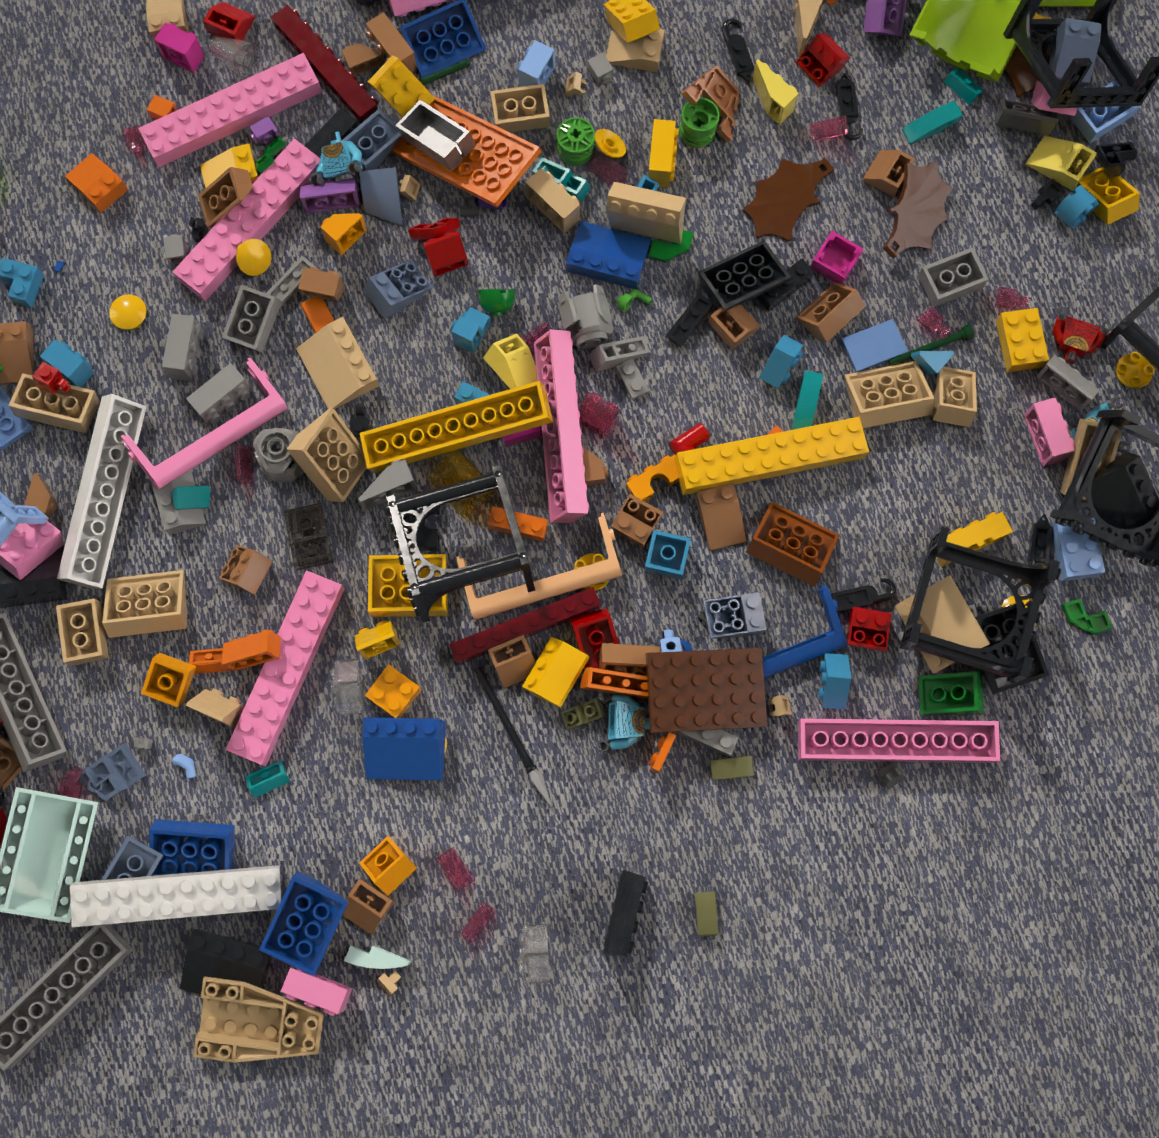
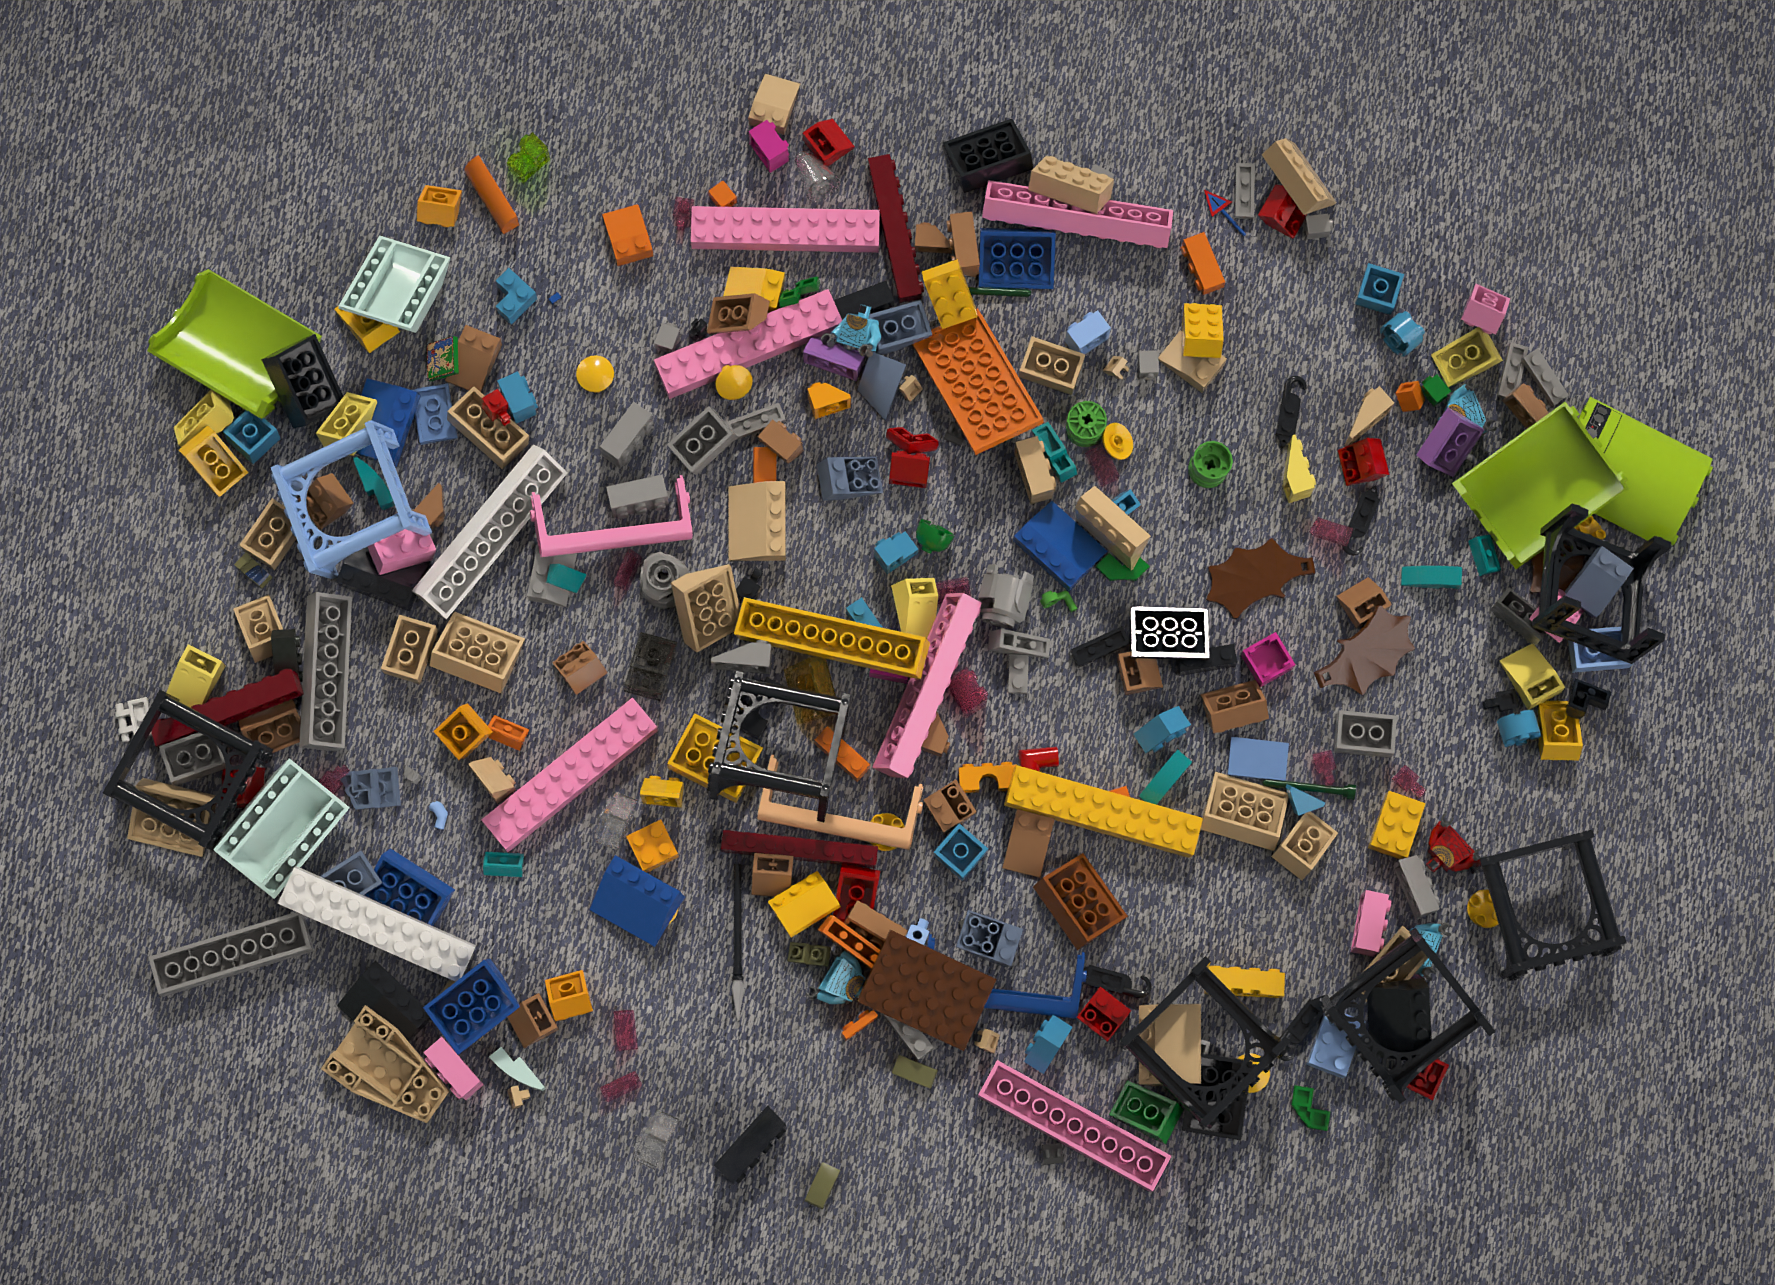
camera: 25 degrees right, 0 degrees up
(251, 650) = (548, 743): orange brick -> none
(263, 131) = (804, 265): medium lavender brick -> none
(436, 135) = (957, 356): flat silver piece -> none
(663, 152) = (1160, 476): yellow brick -> none
(720, 90) = (1245, 445): nougat wing -> none

